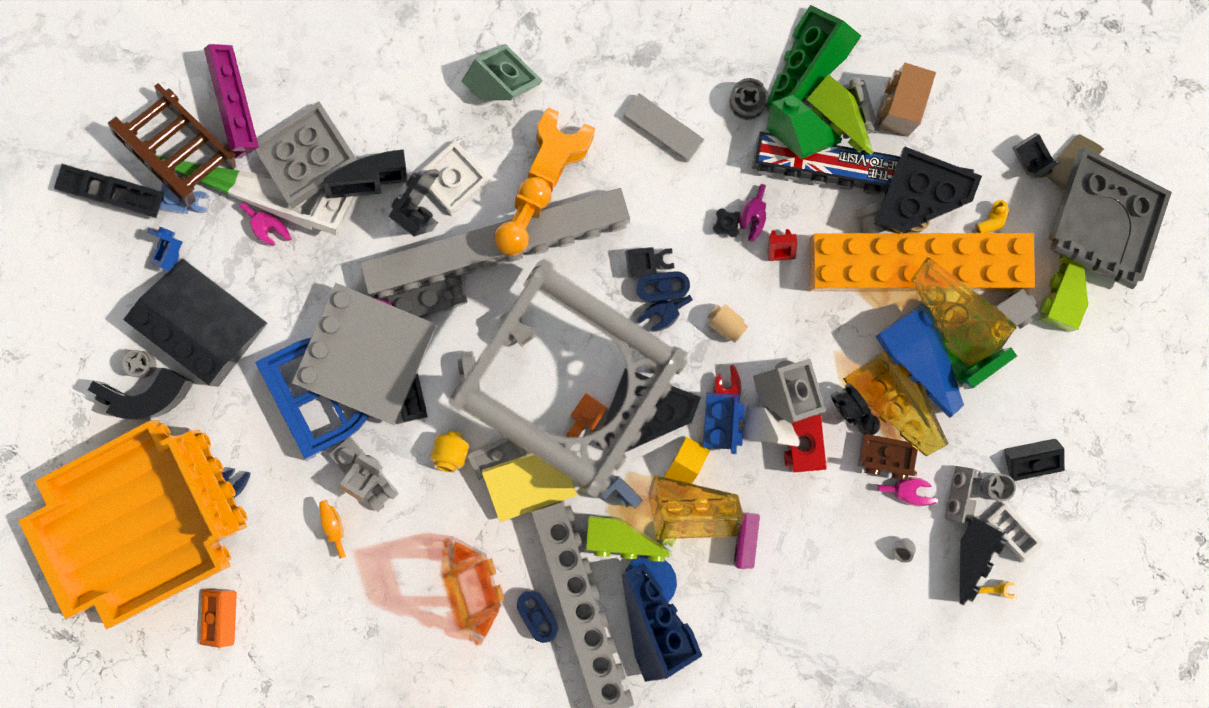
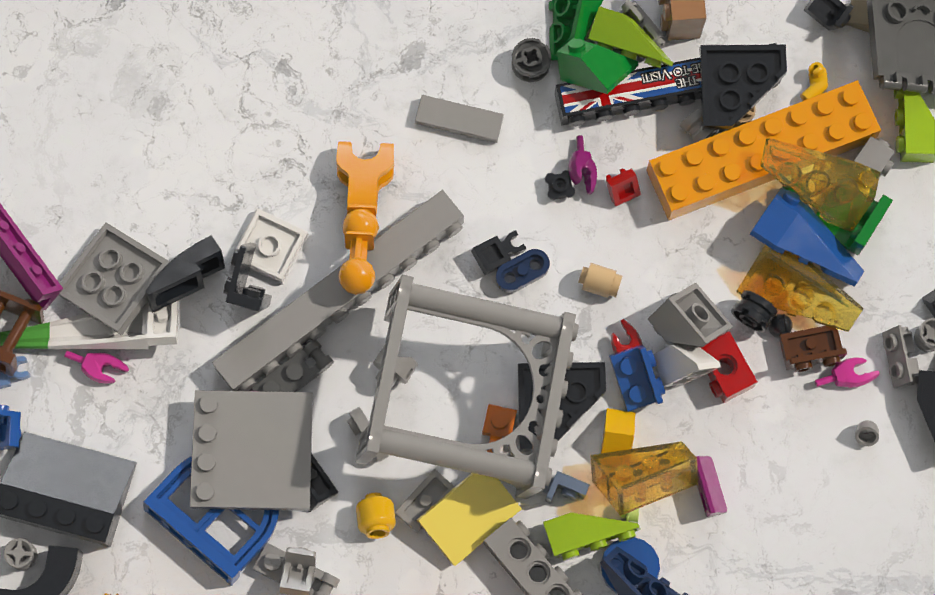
camera: 30 degrees left, 10 degrees down
(499, 76) = (278, 130): sand green slope -> none
(666, 310) = (536, 293): dark blue hand -> none

